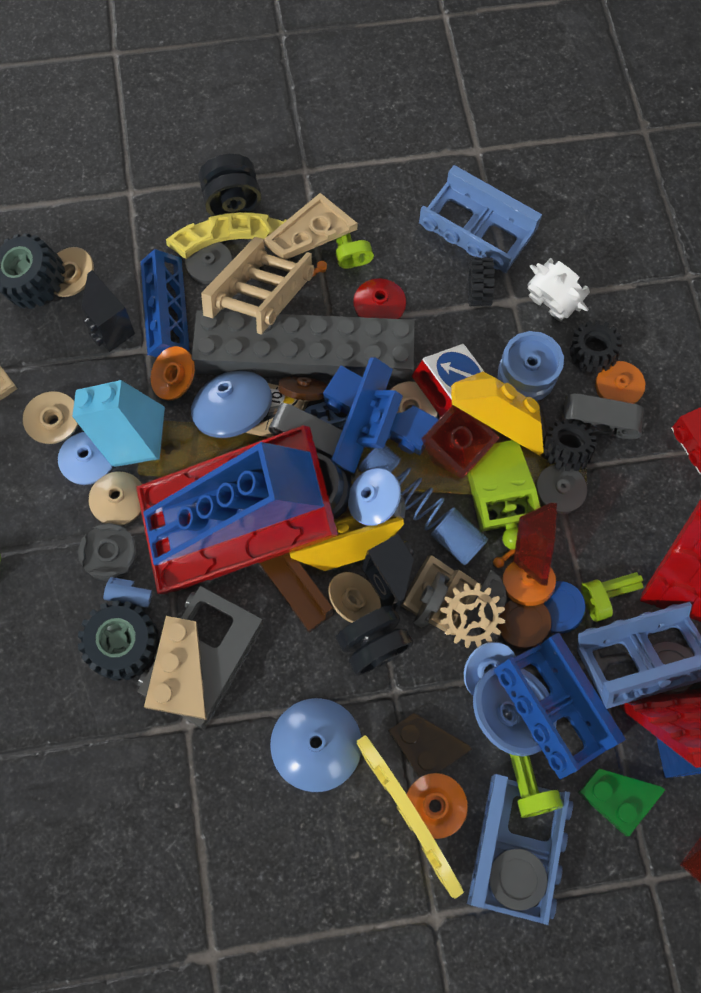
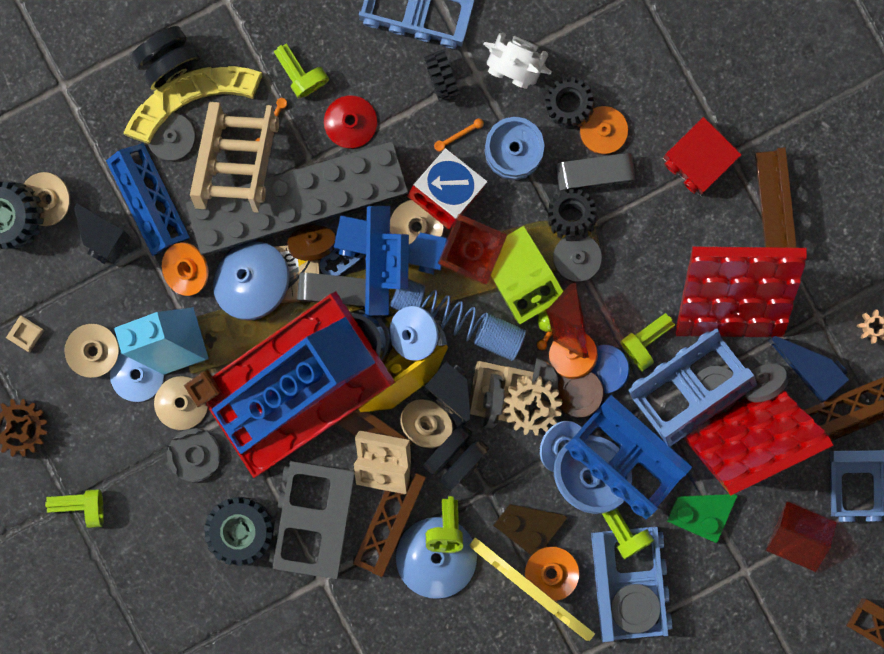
camera: 15 degrees left, 15 degrees up
(124, 590) = (222, 488): medium blue piece -> none
(142, 487) = (202, 388): none -> reddish brown tile
(177, 674) = (300, 541): tan wing -> none
(287, 694) = (395, 531): none -> reddish brown fence
(295, 620) = (382, 462): none -> tan slope
(309, 228) = (258, 74): tan wing -> none
(337, 722) = (449, 537): none -> lime piece
(500, 340) = (440, 146): none -> orange hinge
(501, 409) = (498, 205): yellow wedge -> none

